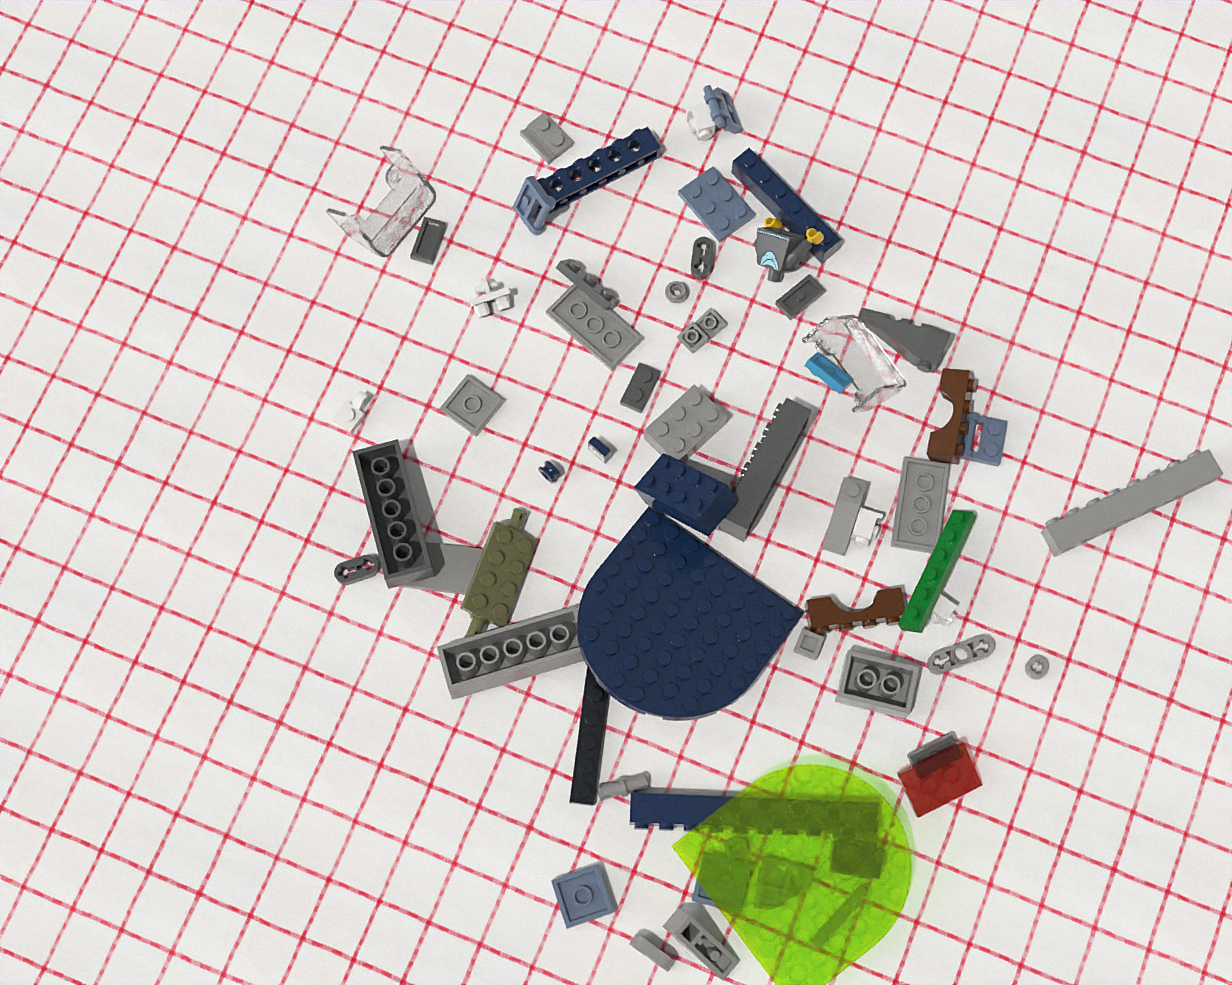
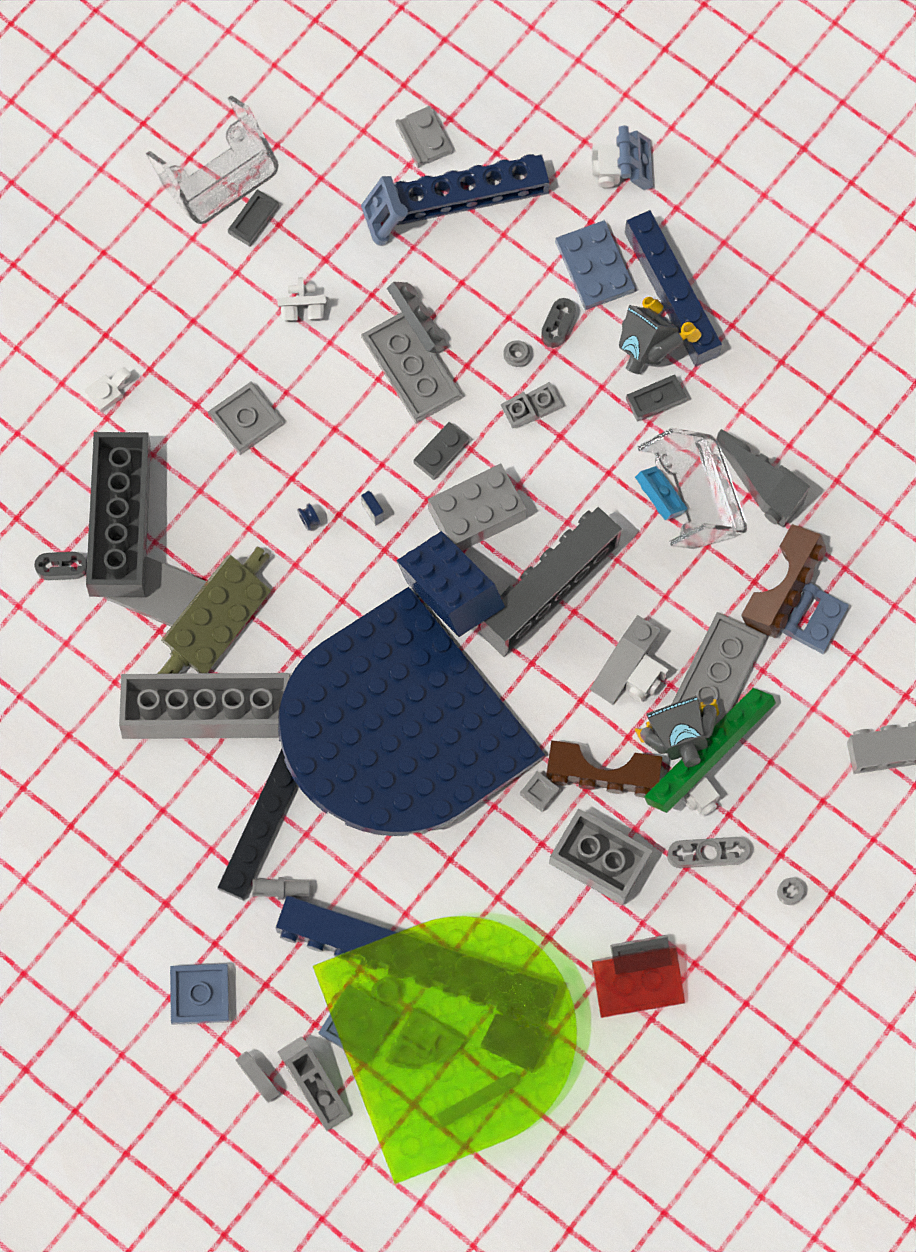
camera: 15 degrees right, 0 degrees up
(909, 561) = (680, 729): none -> dark grey torso

